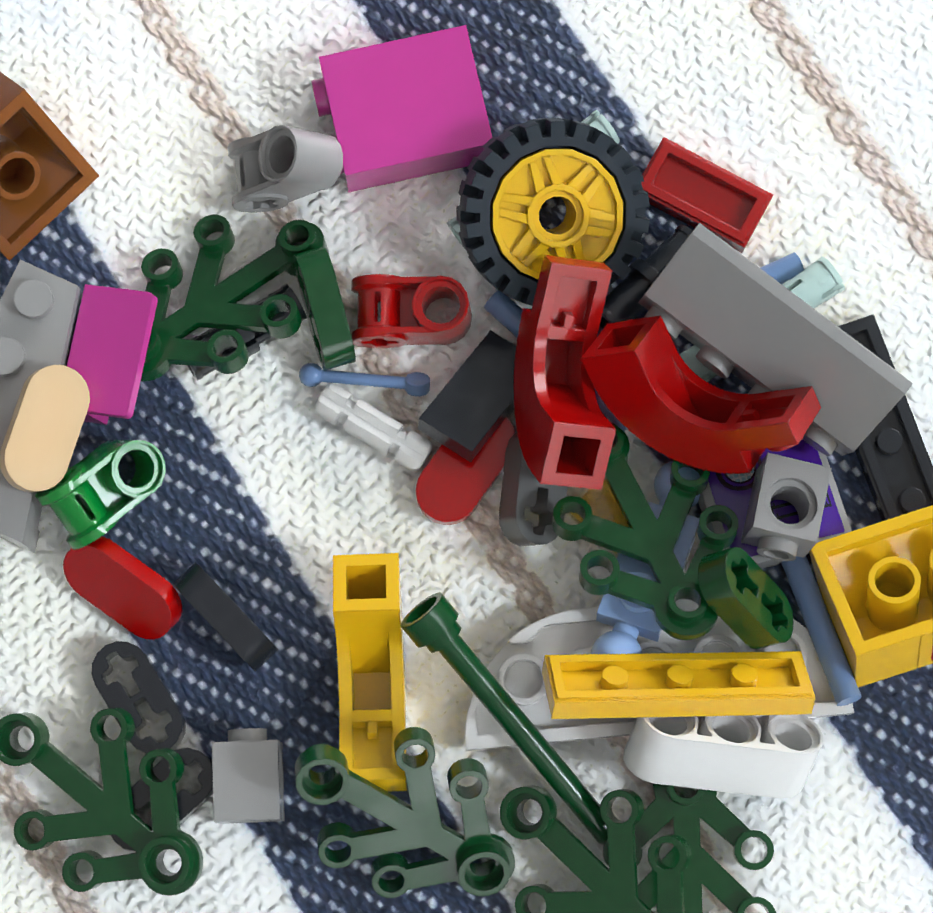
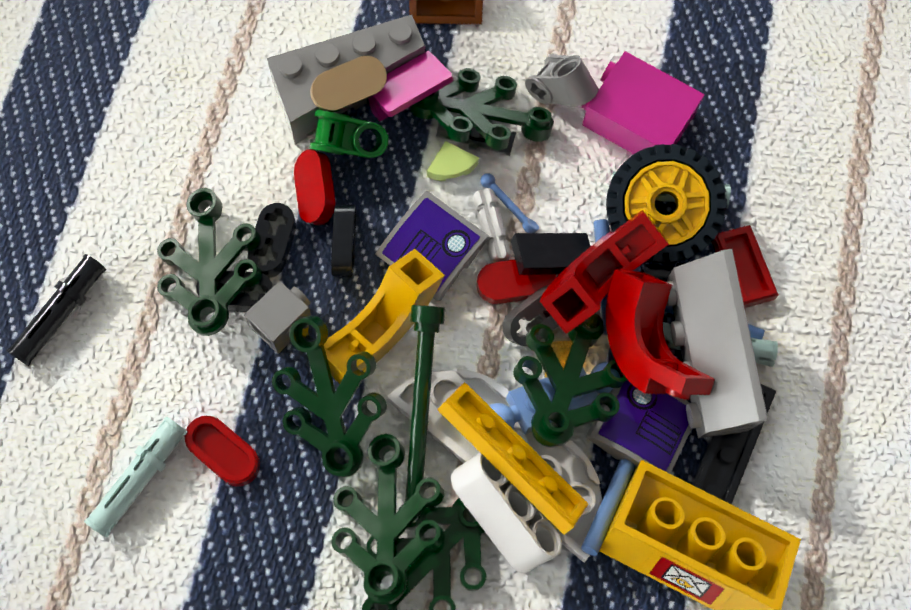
camera: 40 degrees right, 10 degrees down
(248, 395) = (451, 163): none -> yellowish green tile
(324, 308) = (521, 154): dark green beam -> none
(327, 509) = (438, 235): none -> slope
(404, 311) = (553, 186): red piece -> none
(745, 598) = (585, 449): dark green beam -> none
(797, 483) = (658, 416): light grey brick -> none

